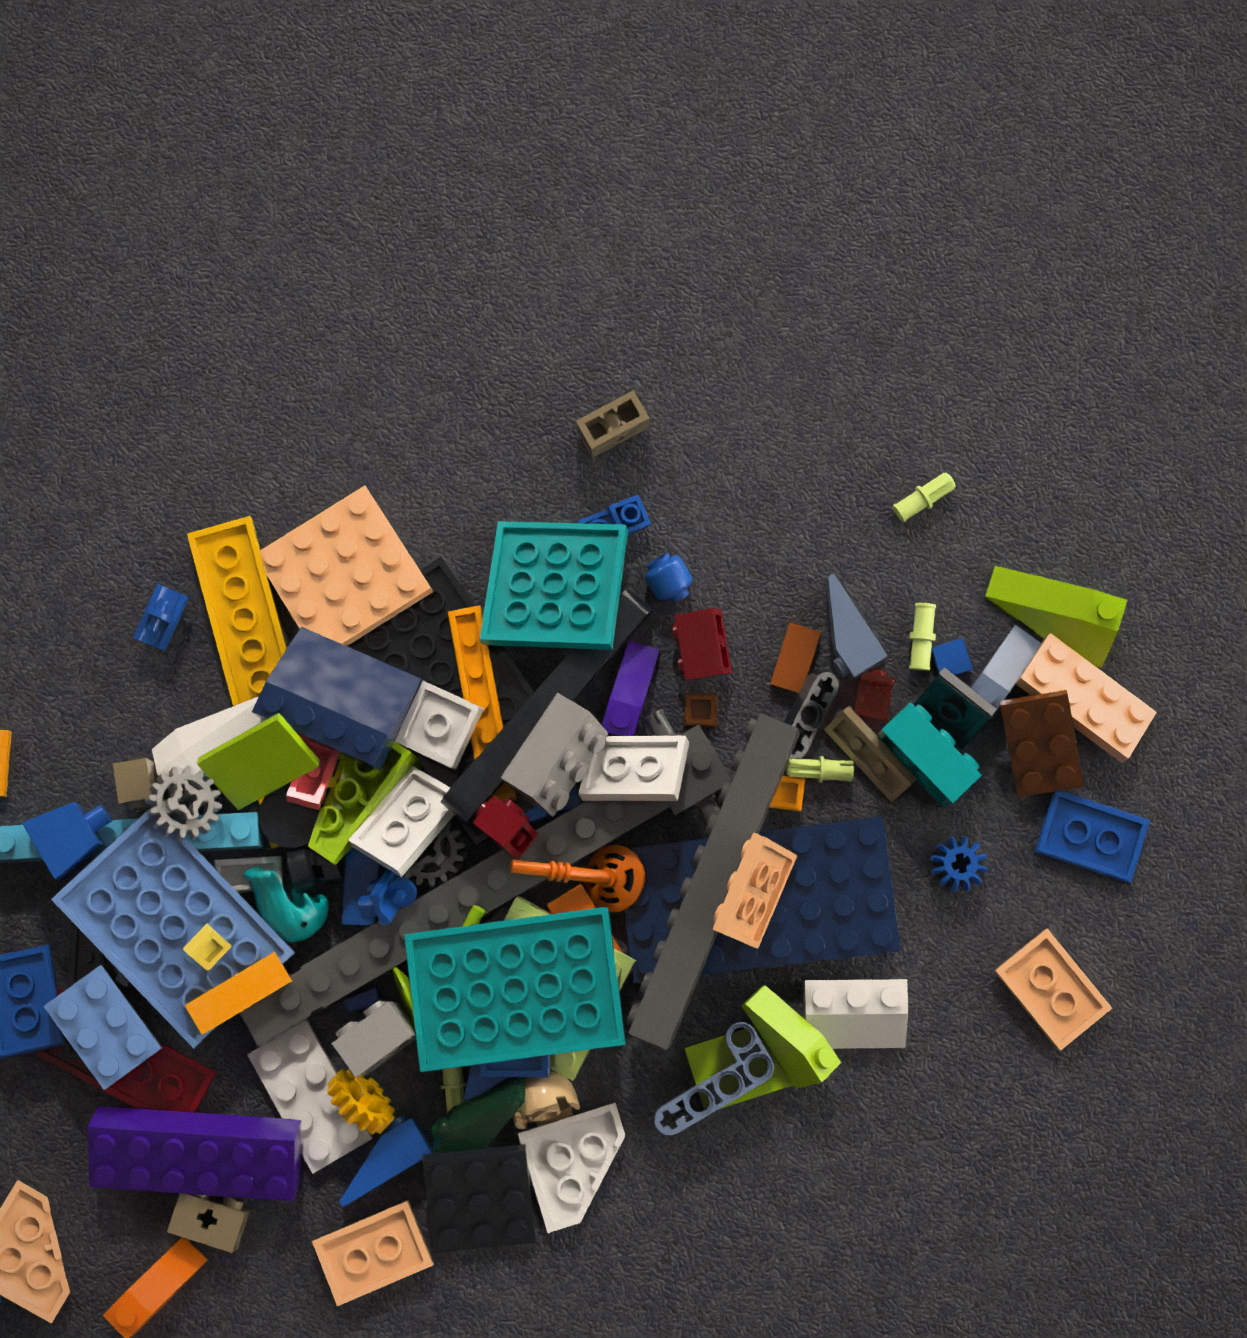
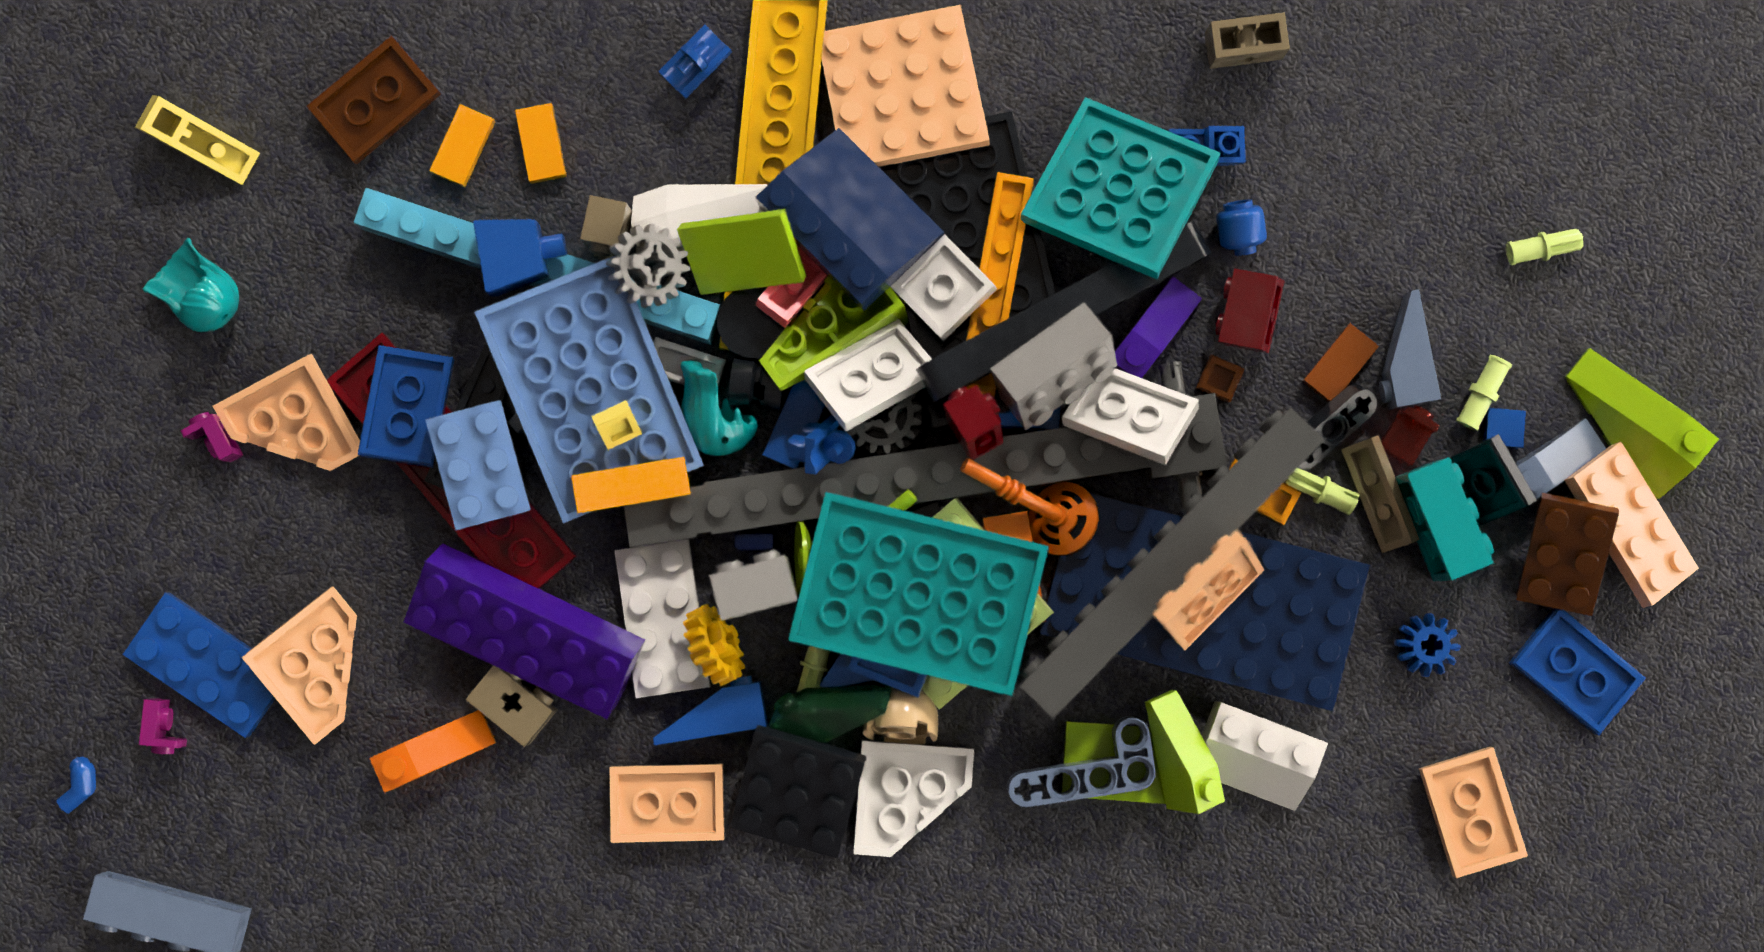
camera: 20 degrees right, 5 degrees up
(56, 735) = (540, 143): none -> light orange tile

